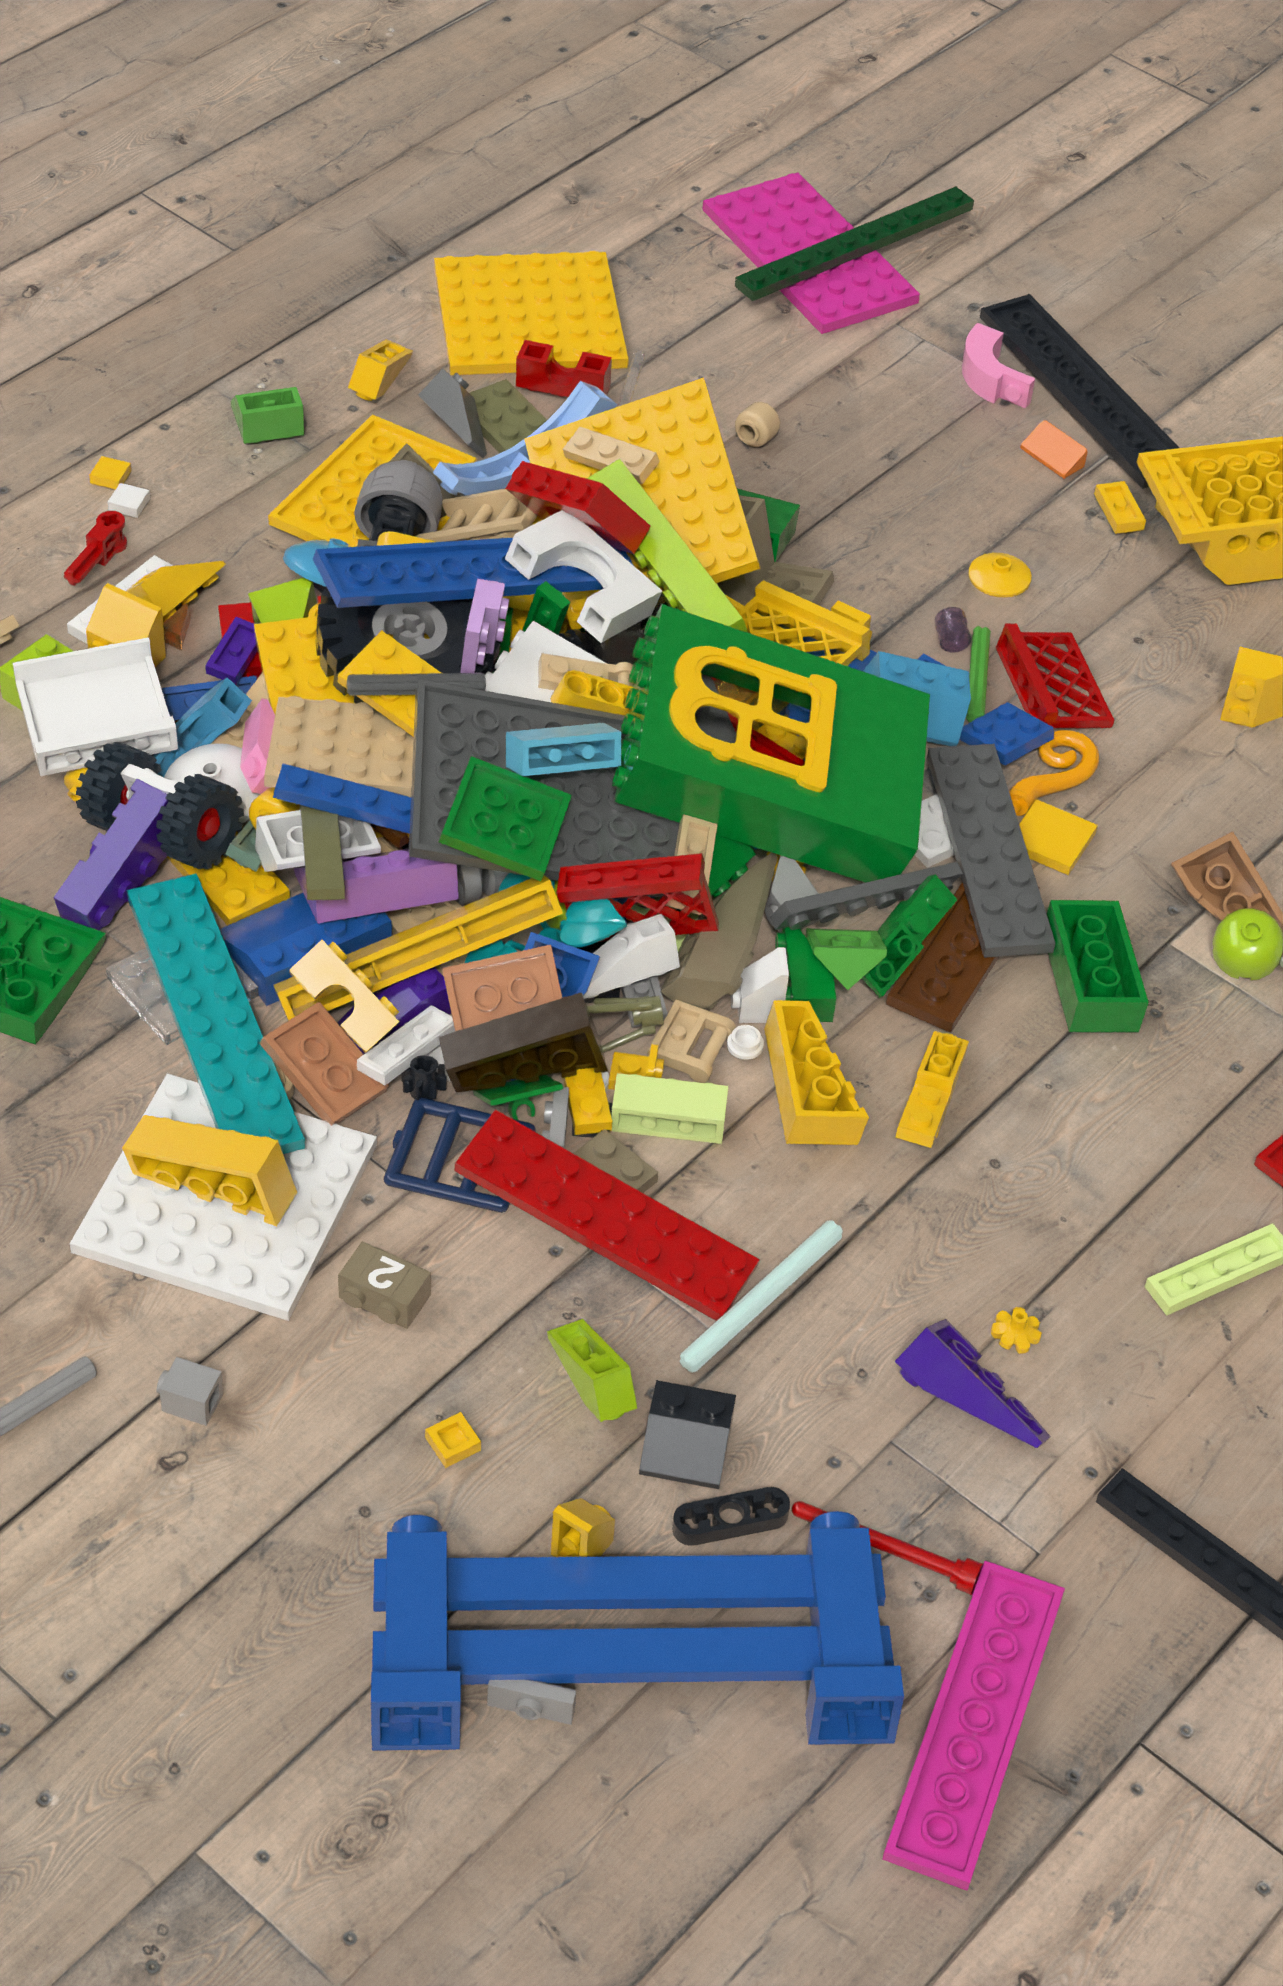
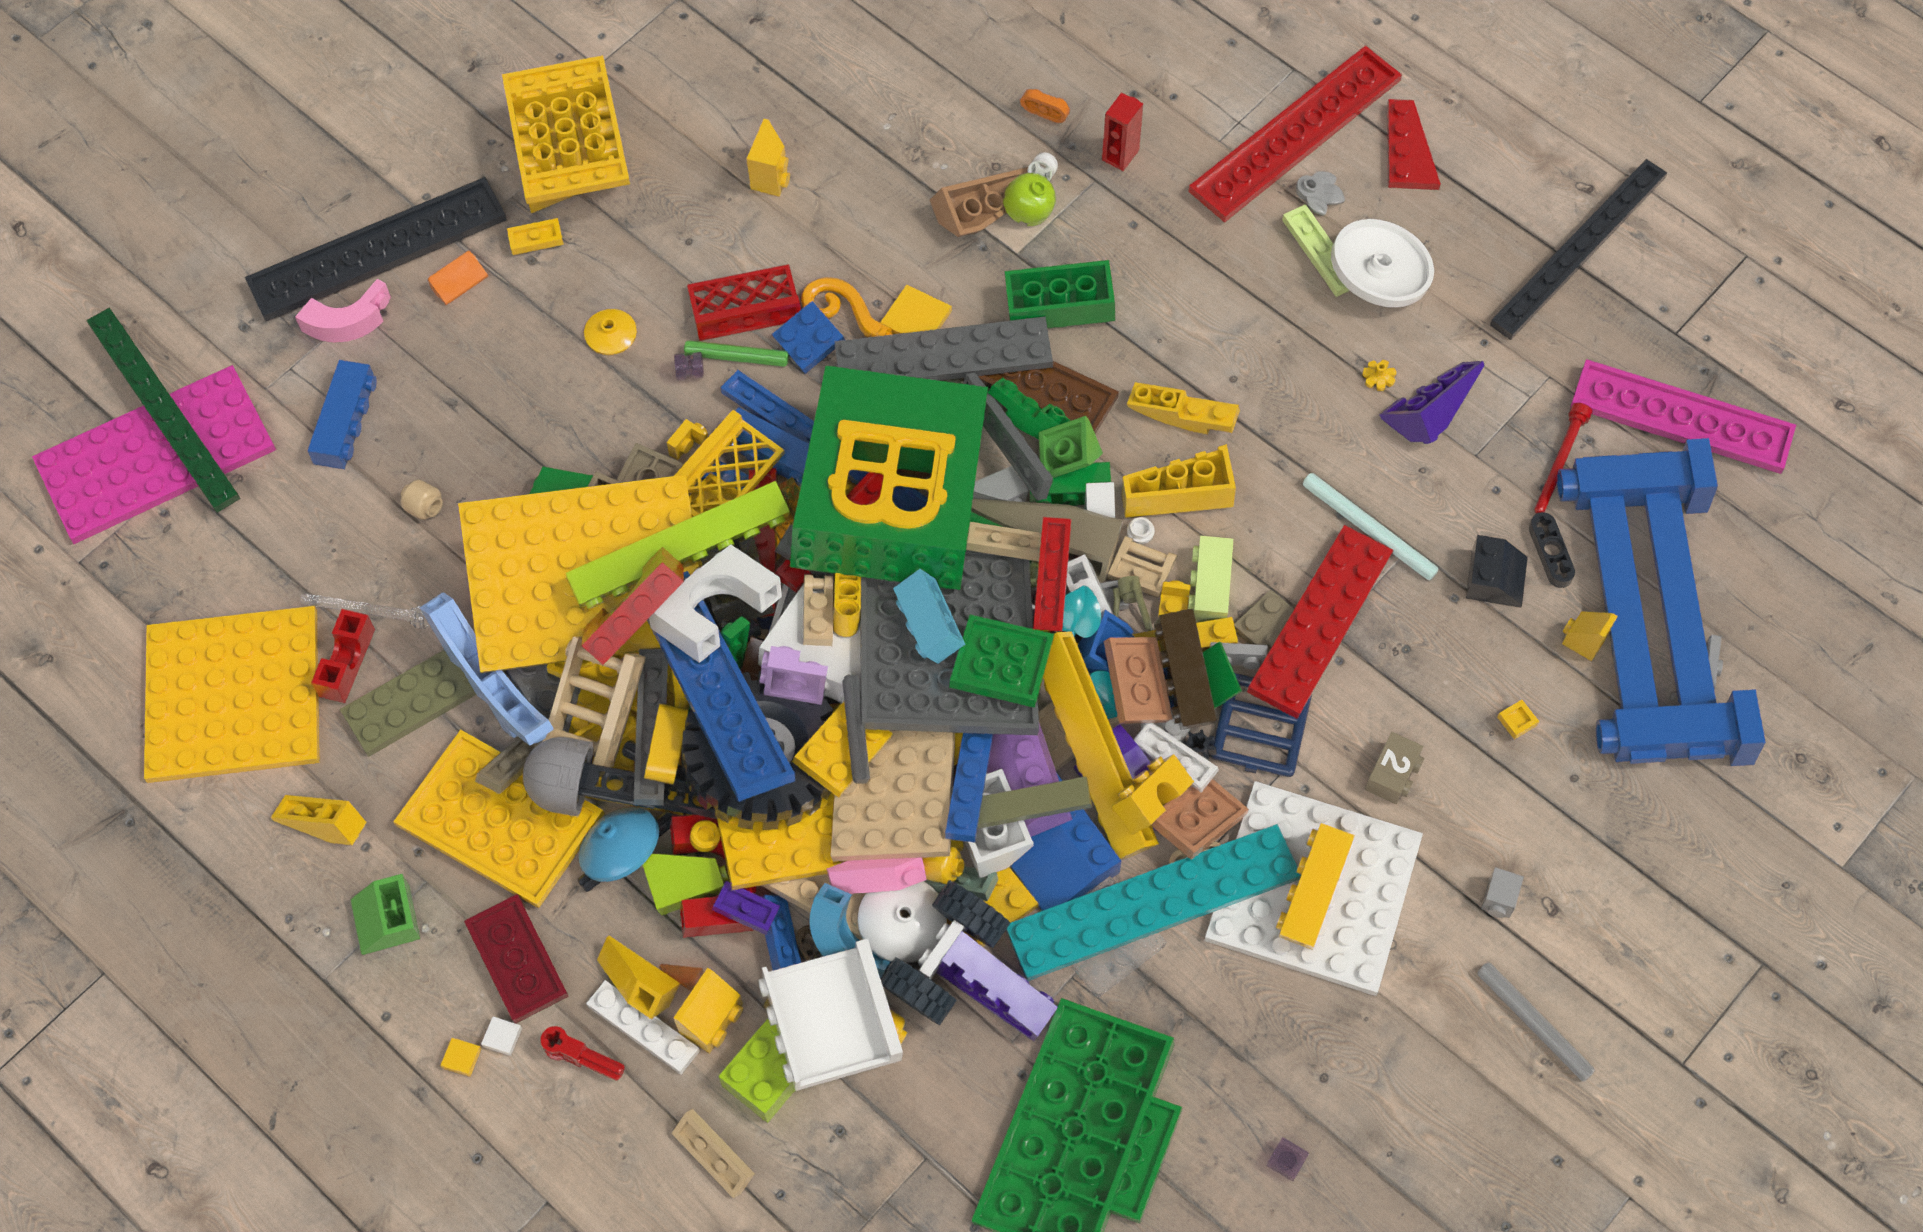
camera: 85 degrees left, 15 degrees up
(210, 505) = (516, 959): none -> dark red plate
(455, 407) = (388, 749): slope -> none
(595, 1370) = (1448, 631): lime slope -> none
(601, 450) = (536, 589): tan plate -> none
(863, 367) = (342, 414): none -> blue brick
(947, 689) = (788, 391): dark azure slope -> none
(1200, 1330) = (1382, 263): none -> white dish

